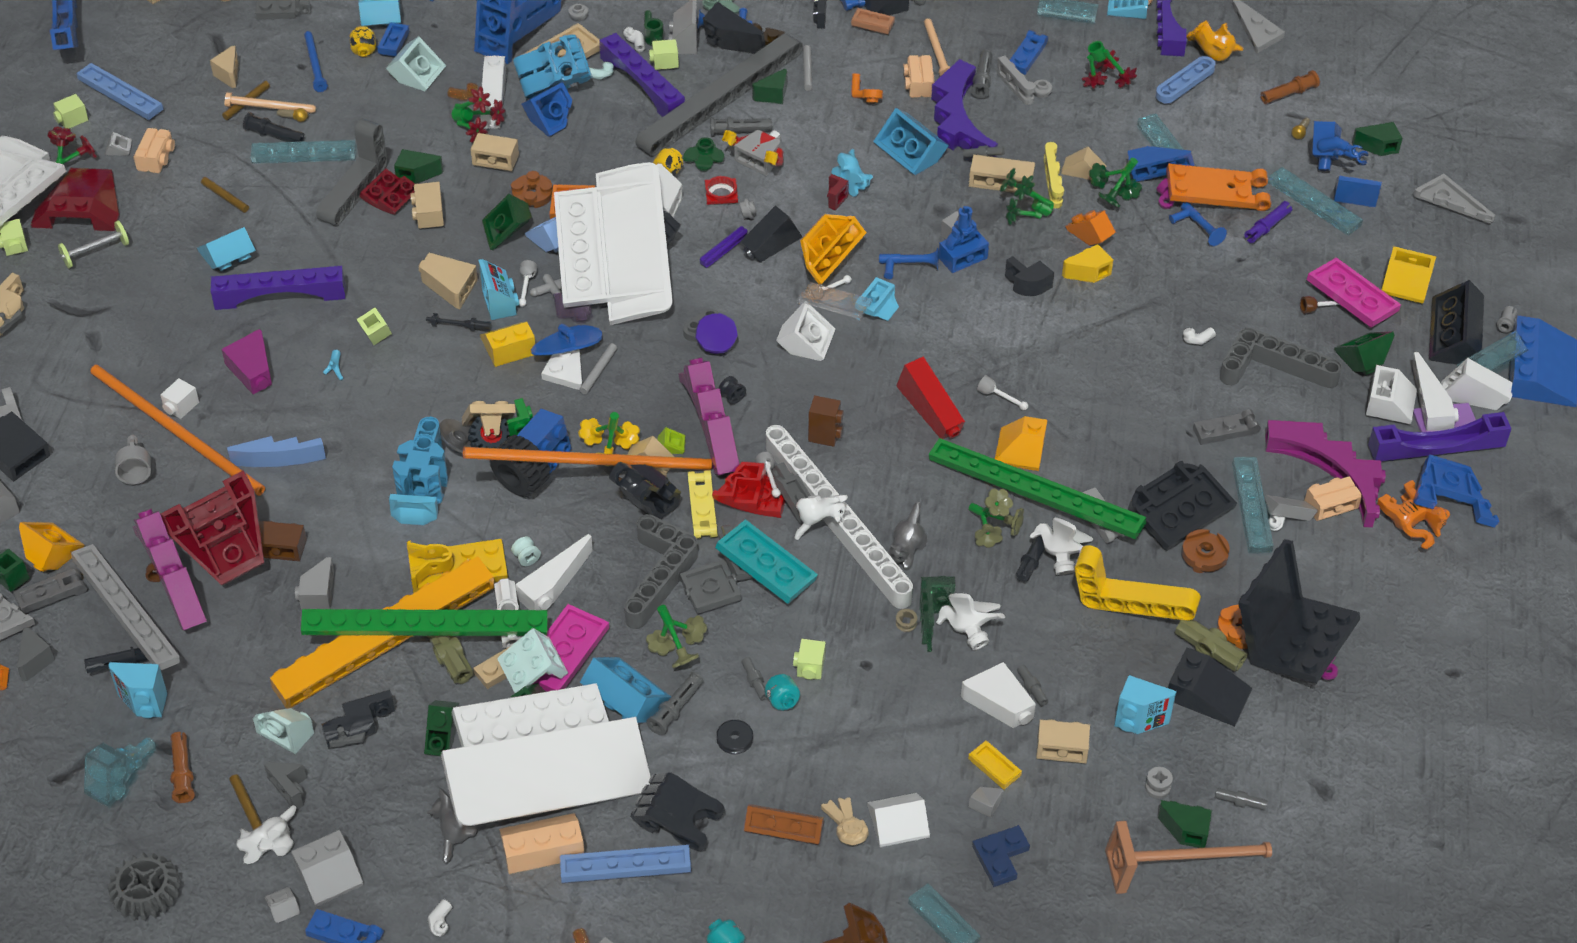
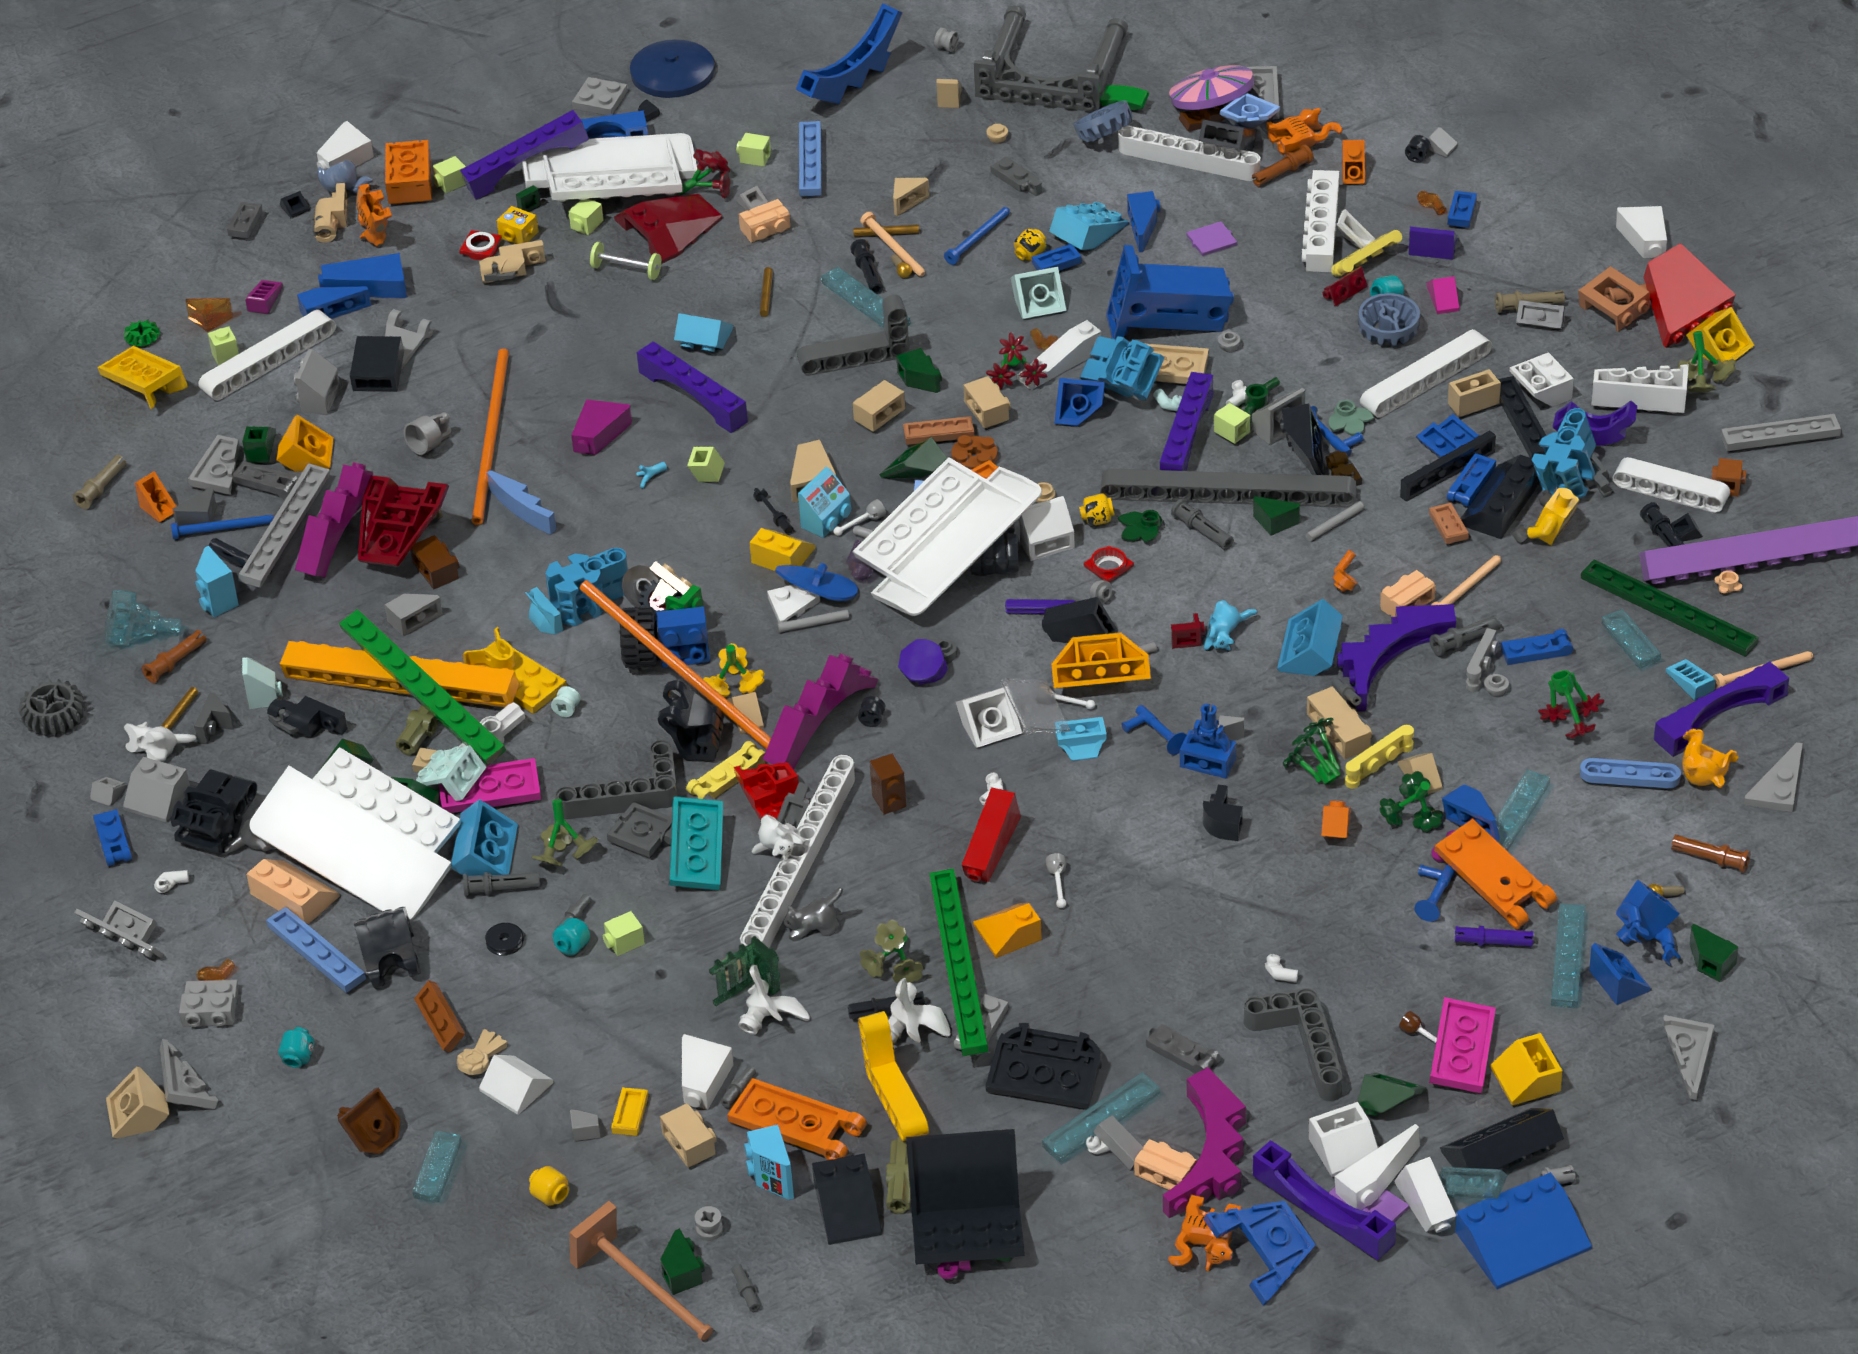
camera: 55 degrees right, 5 degrees down
(35, 682) = (220, 525): none -> blue bar
(179, 398) = (518, 414): white brick -> none
(388, 192) = (872, 371): dark red slope -> none
(404, 840) = (213, 810): none -> black connector
(487, 193) = (938, 429): none -> nougat plate
(547, 582) = (550, 734): white slope -> none
(672, 441) = (773, 711): lime slope -> none
(757, 150) = (1180, 552): light grey torso -> none
(761, 458) = (812, 779): hinge -> none
(877, 373) = (993, 781): none -> white arm
(995, 852) = (535, 1157): dark blue plate -> none
(1036, 857) = (548, 1185): none -> yellow head
(1088, 265) = (1284, 845): yellow slope -> none
(1089, 674) = (769, 1105): none -> orange hinge
(1203, 561) = (1015, 1102): dark orange plate -> none

